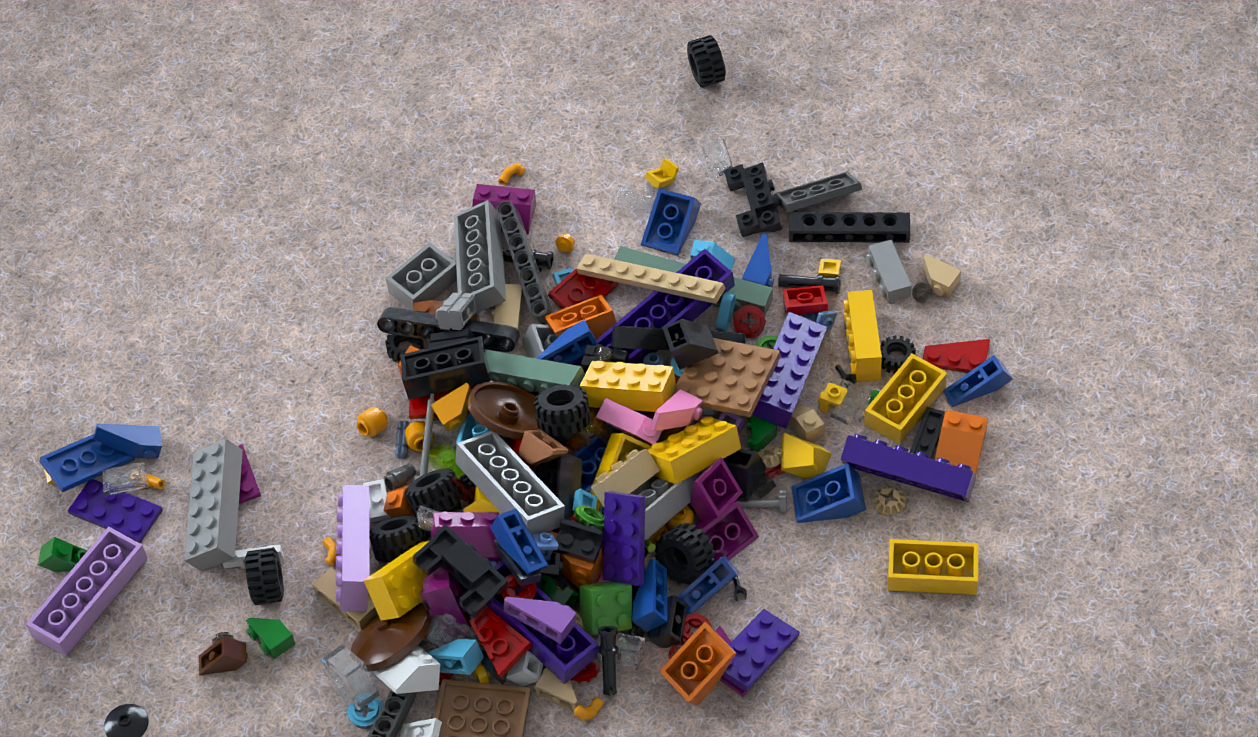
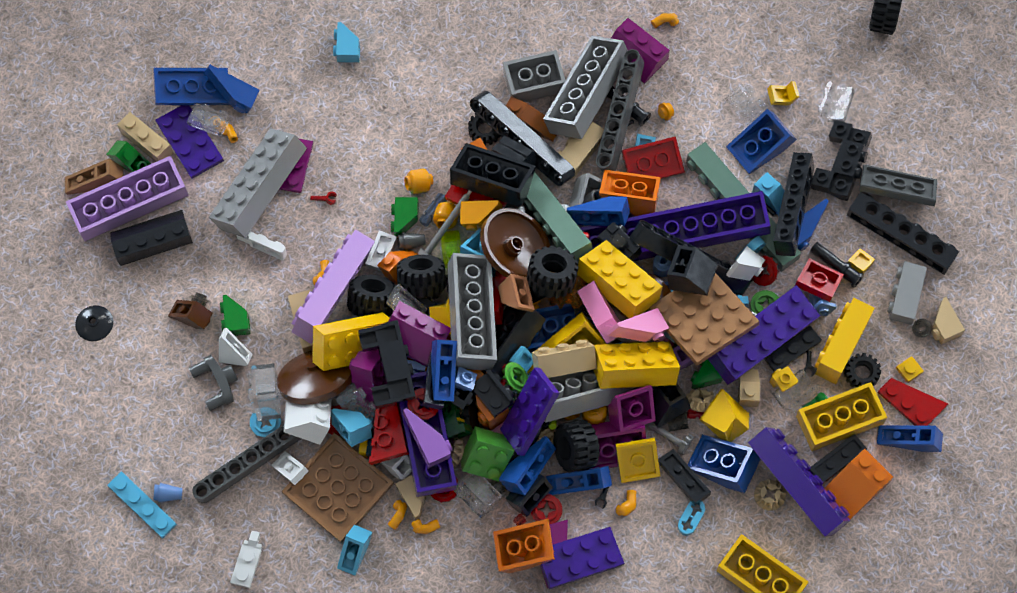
camera: 30 degrees right, 15 degrees up
(36, 592) = (93, 177): none -> medium nougat slope
(73, 529) = (144, 137): none -> tan brick
(135, 614) = (150, 238): none -> black slope
(221, 346) = (347, 45): none -> medium azure slope
(264, 576) = (256, 267): black tyre -> none
(288, 664) = (232, 350): none -> white slope
(291, 486) = (325, 198): none -> red hand
(294, 693) = (223, 377): none -> dark grey connector
(378, 455) = (405, 214): none -> green slope
(456, 311) = (533, 128): light grey brick -> none
(467, 493) = (443, 292): clear red hand -> none
(556, 715) = (399, 515): none -> light orange arm
(608, 650) = (463, 493): black pin -> none
(651, 278) = (703, 191): tan plate -> none
(732, 320) = (746, 265): none -> white slope
(738, 251) = (794, 204): none -> black brick
(749, 536) = (637, 460): none -> yellow plate
(768, 581) = (629, 505): none -> light orange arm
(801, 527) = (684, 477): none -> black plate
(821, 371) = (793, 349): none -> black plate
(827, 559) = (695, 519): none -> medium azure beam
(935, 331) = (909, 369): none -> yellow plate

